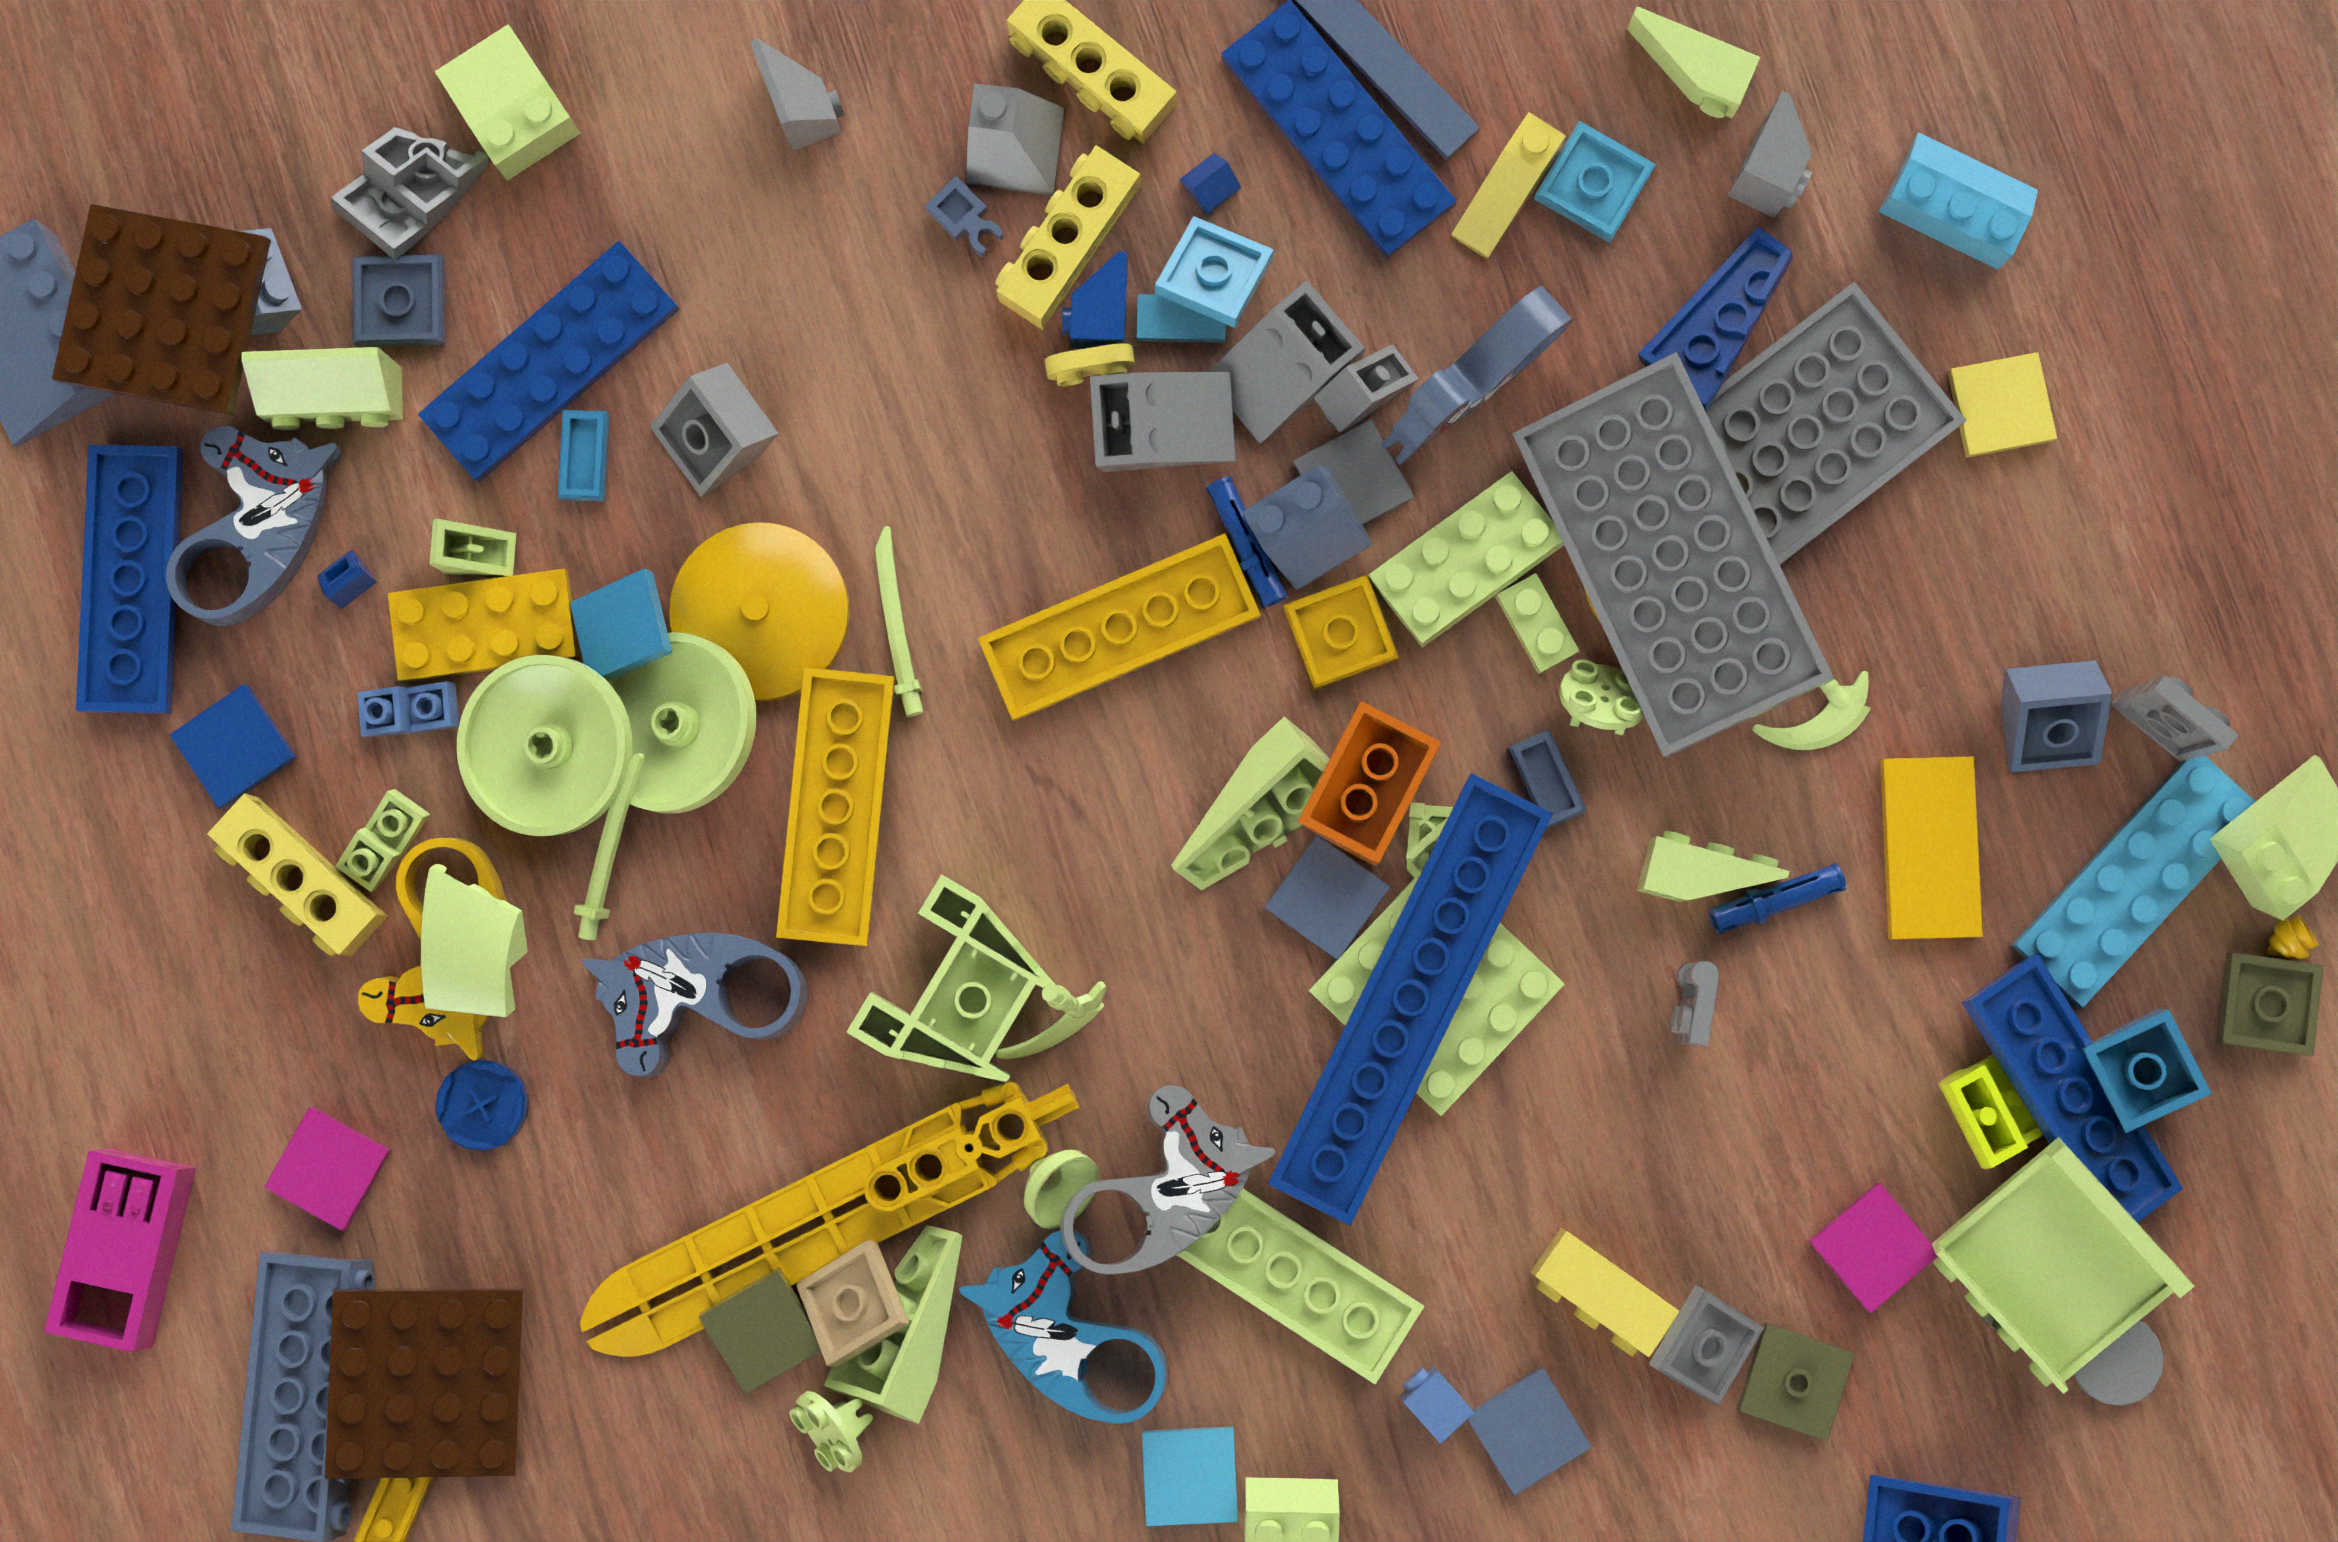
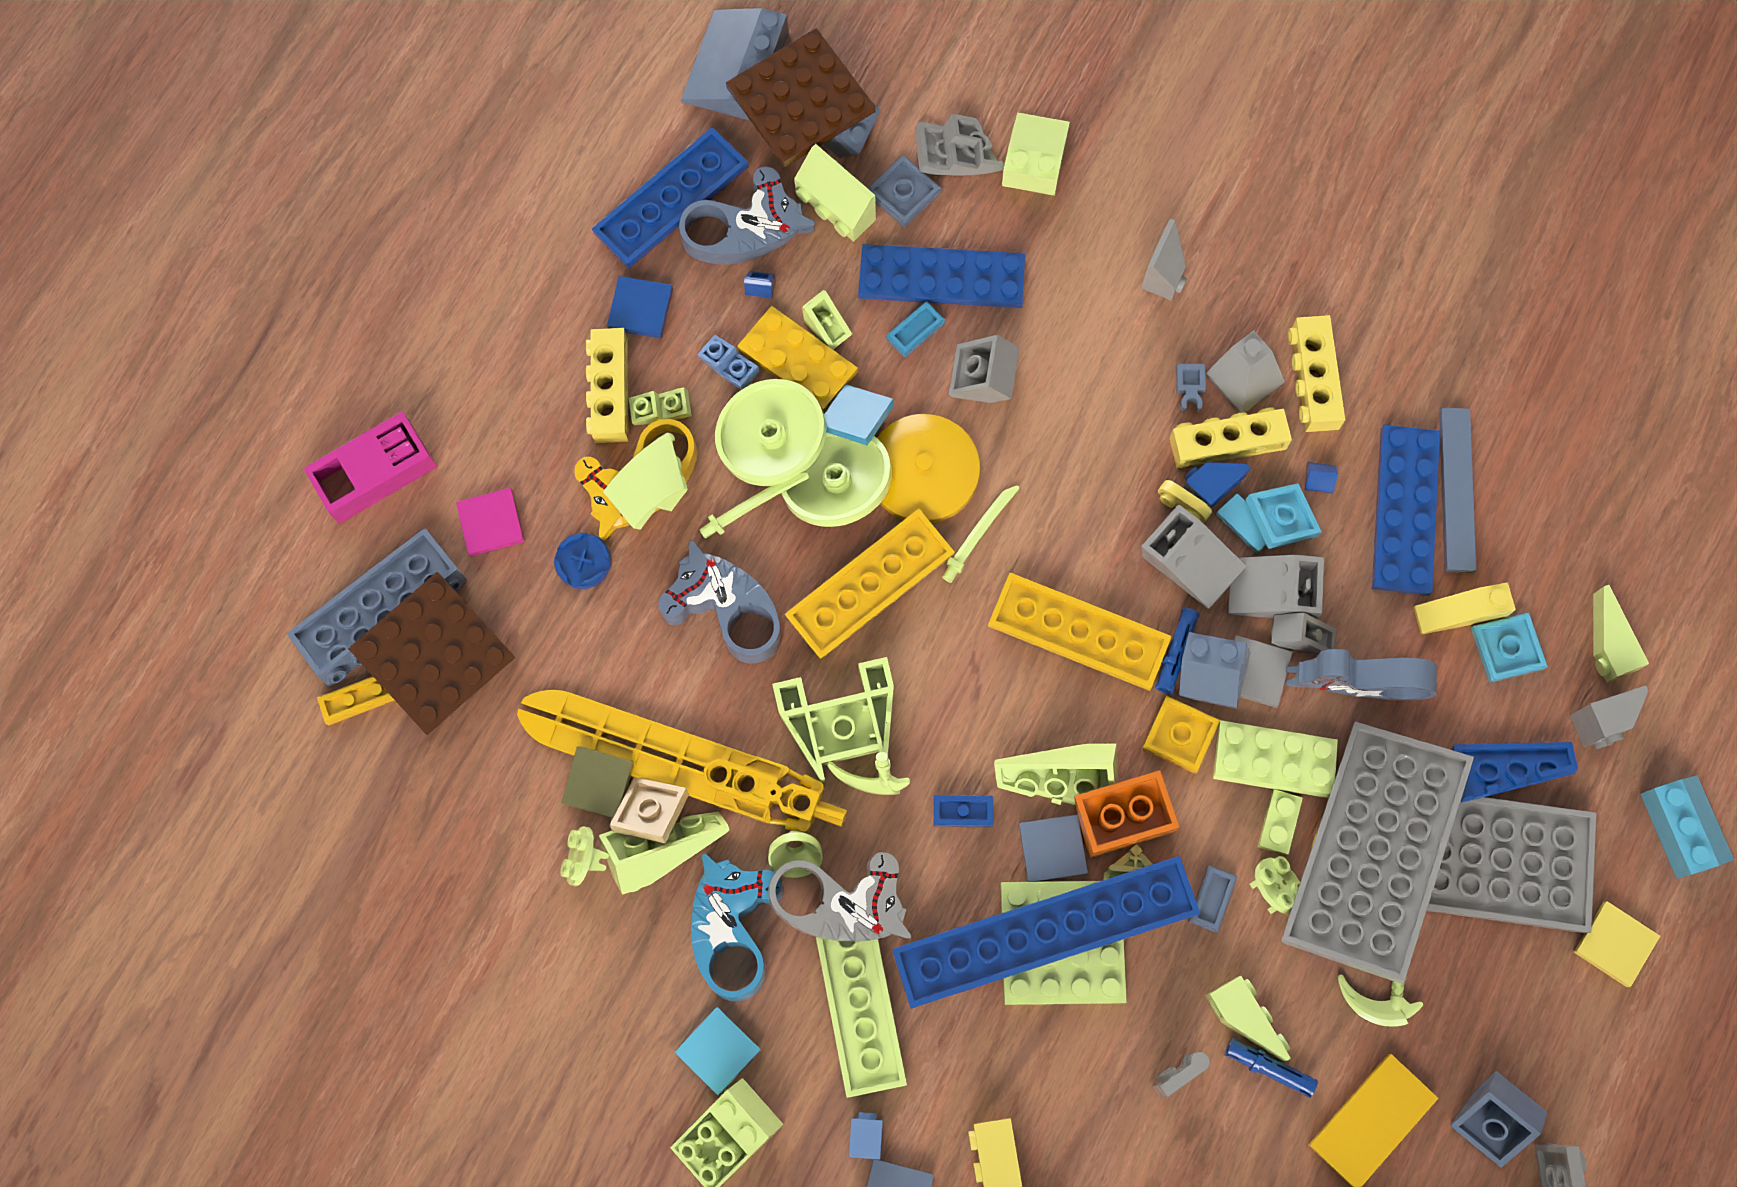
camera: 45 degrees right, 10 degrees down
(1191, 954) = (963, 811): none -> blue plate

